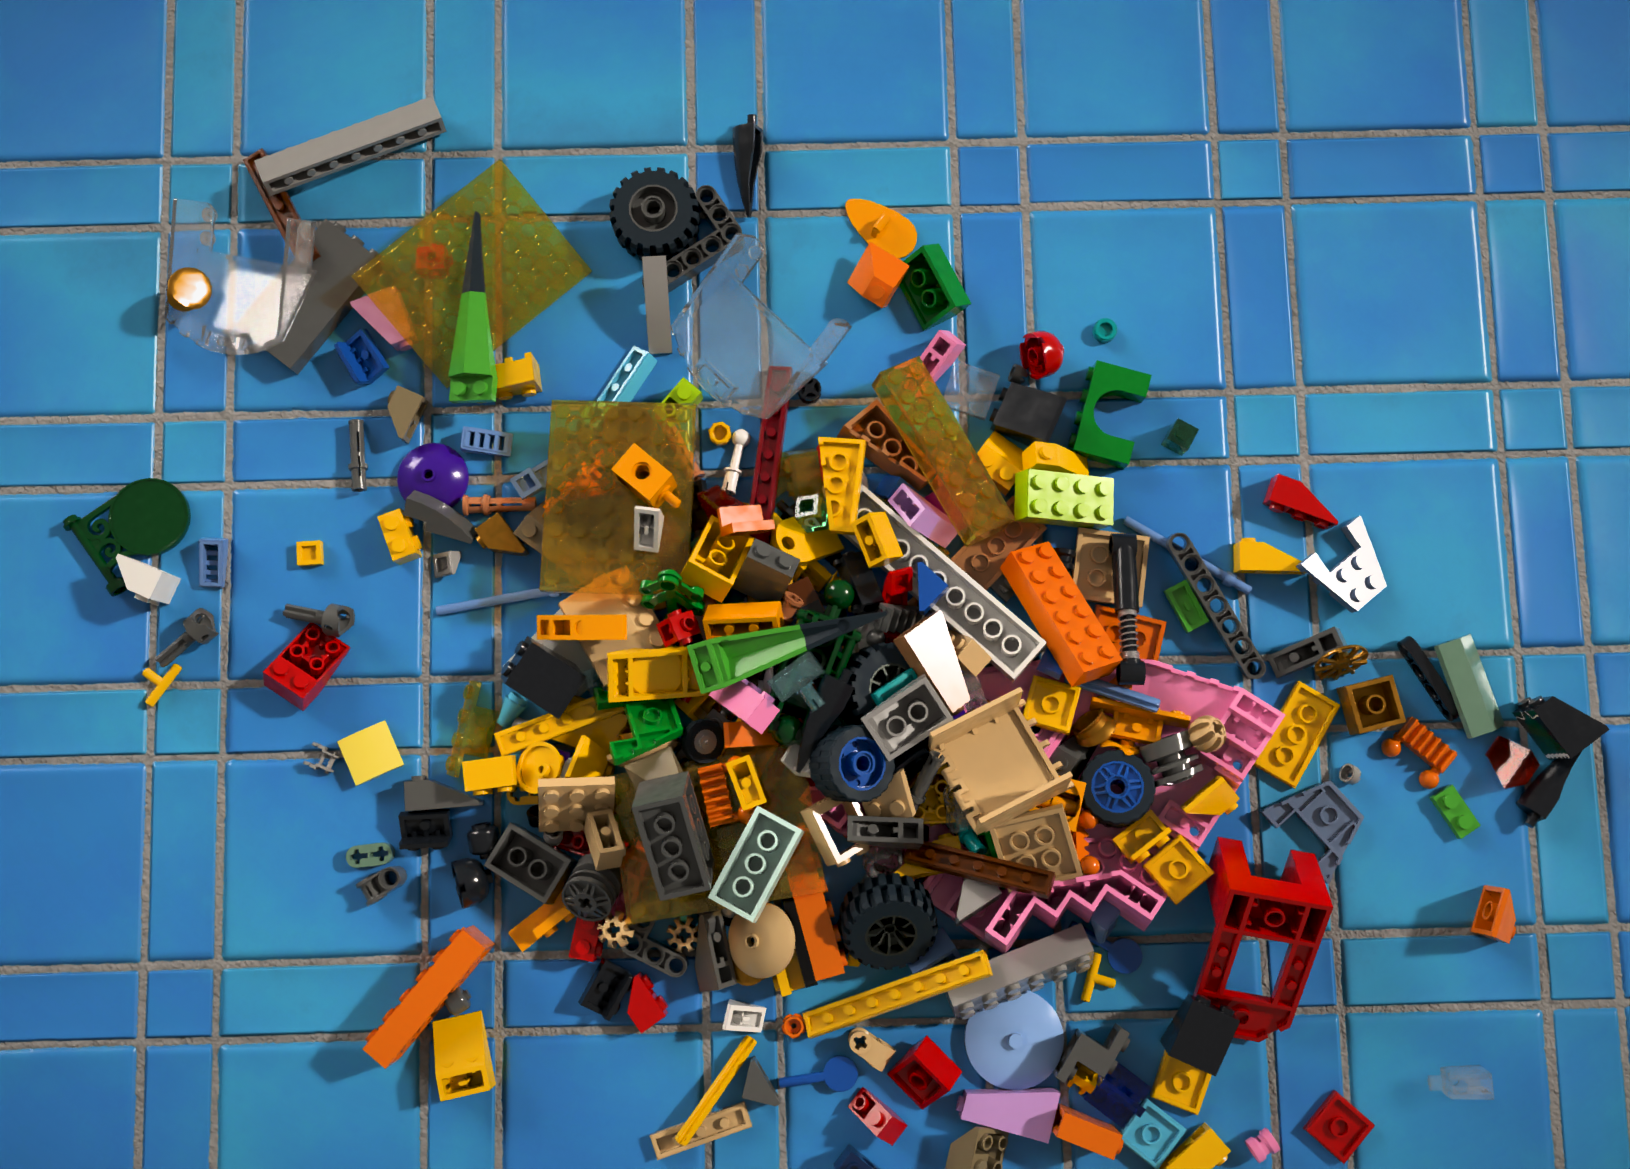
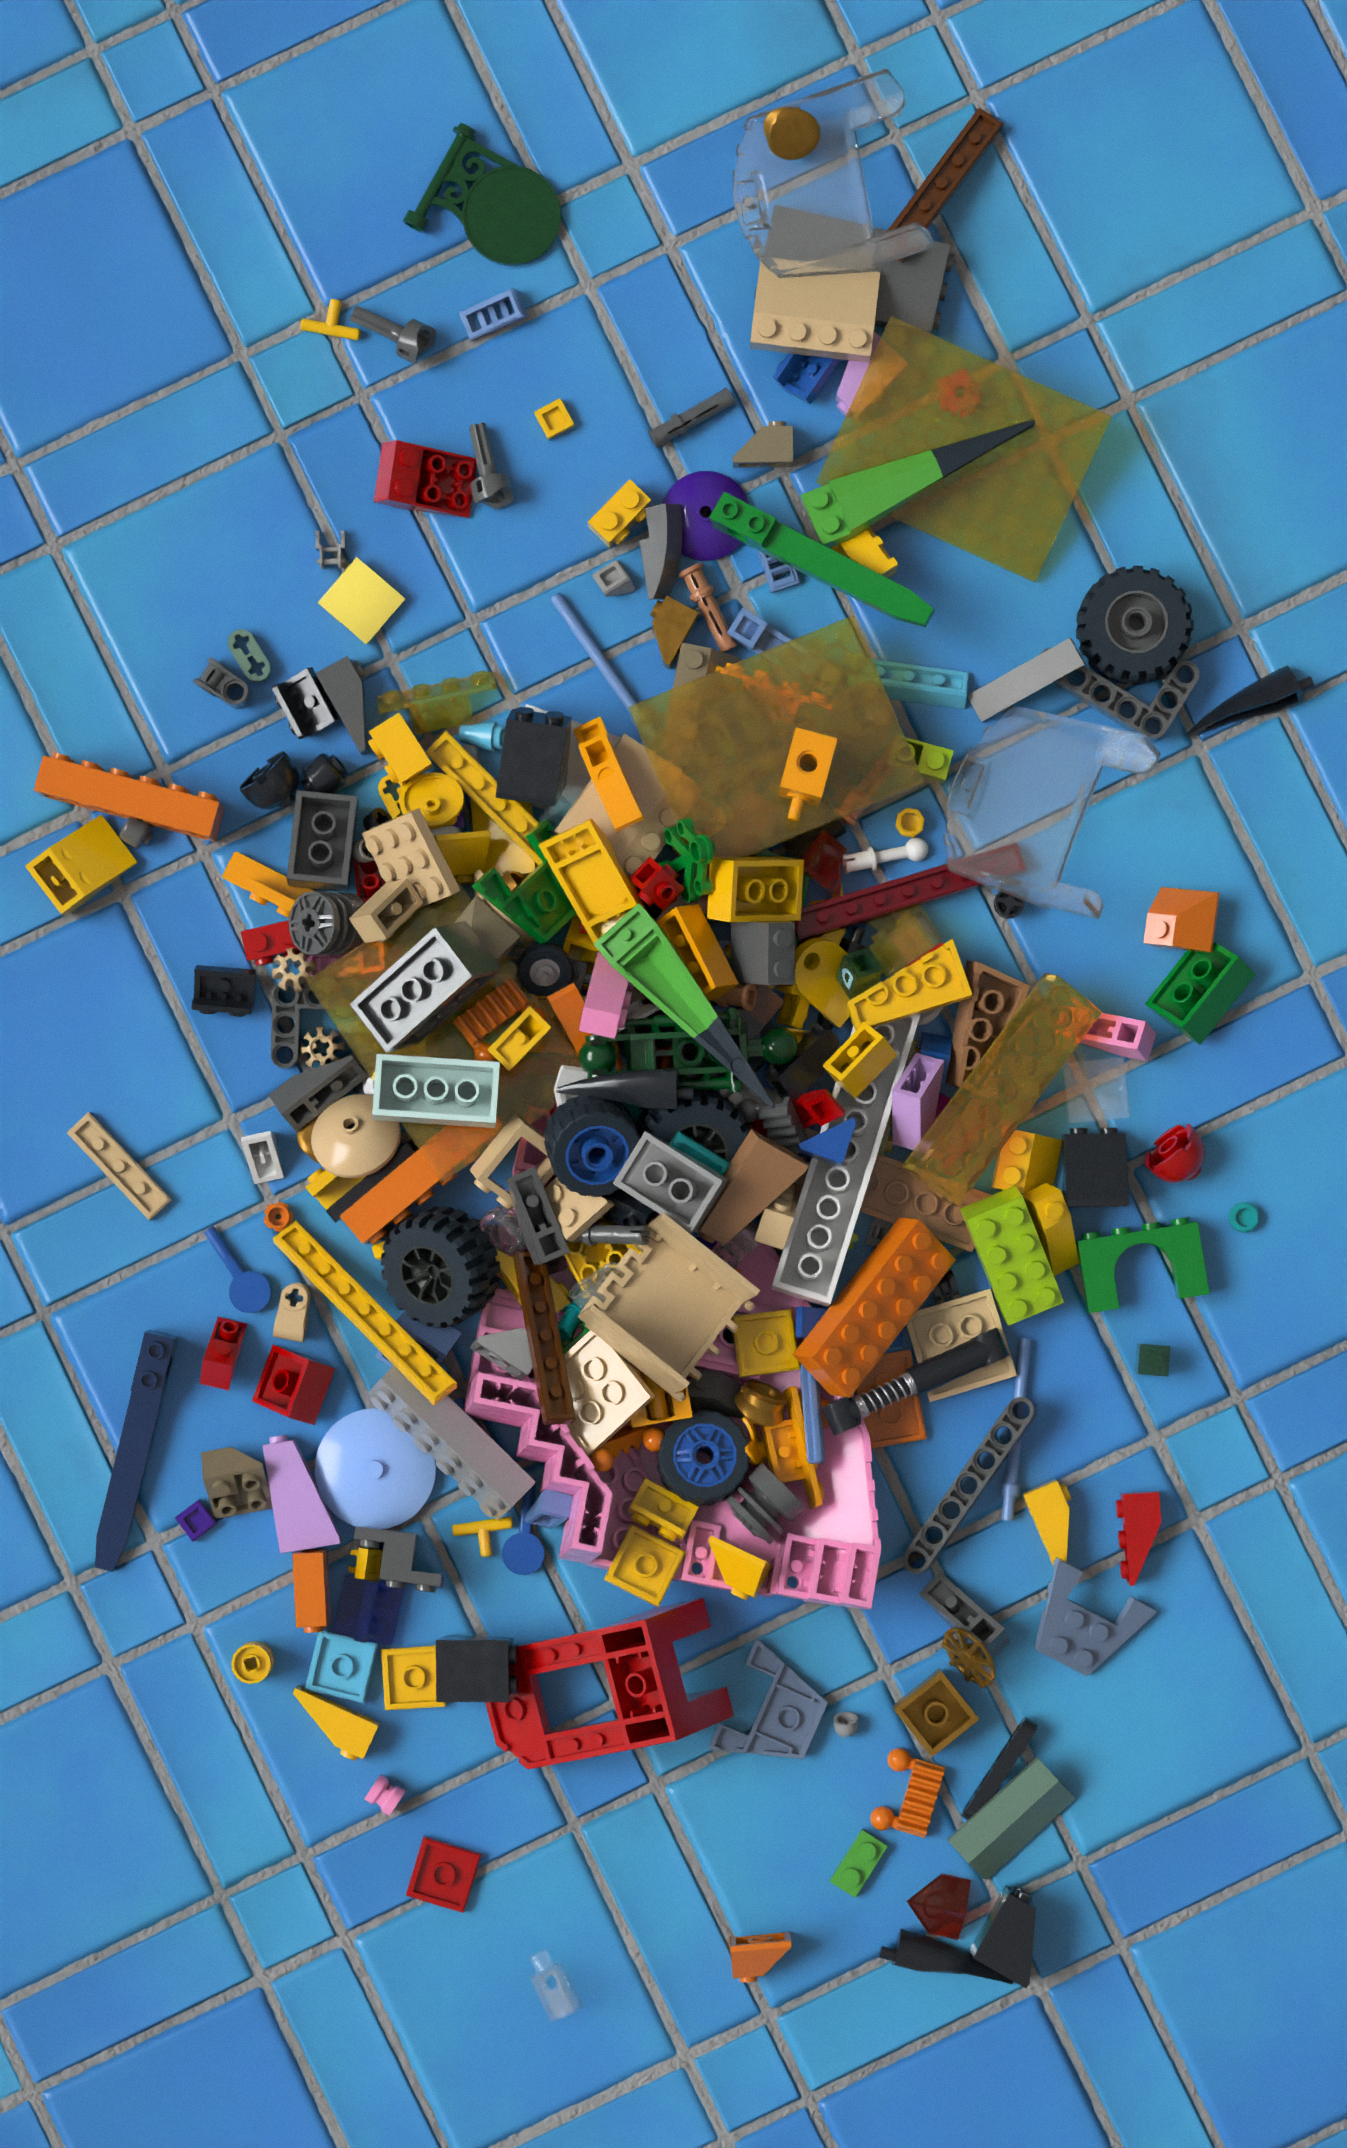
camera: 75 degrees right, 5 degrees up
(147, 581) = (438, 256): white slope -> none
(325, 331) = (816, 314): none -> tan slope
(350, 146) = (1052, 230): light grey brick -> none
(465, 436) = (818, 561): none -> green piece
(644, 1005) = (225, 1040): red slope -> none
(647, 528) = (750, 797): white slope -> none
(715, 1090) = (170, 1162): yellow axle -> none
(743, 521) = (813, 898): panel -> none
(758, 1085) = (196, 1206): dark grey slope -> none
(798, 679) = (656, 1044): clear light blue brick -> none
(882, 226) = (1248, 898): light orange shield -> none
(1017, 373) = (1141, 1138): dark grey hinge -> none
(1186, 606) = (954, 1453): bright green plate -> none
(1207, 733) = (809, 1529): tan piece -> none
(1298, 735) = (864, 1643): yellow tile -> none

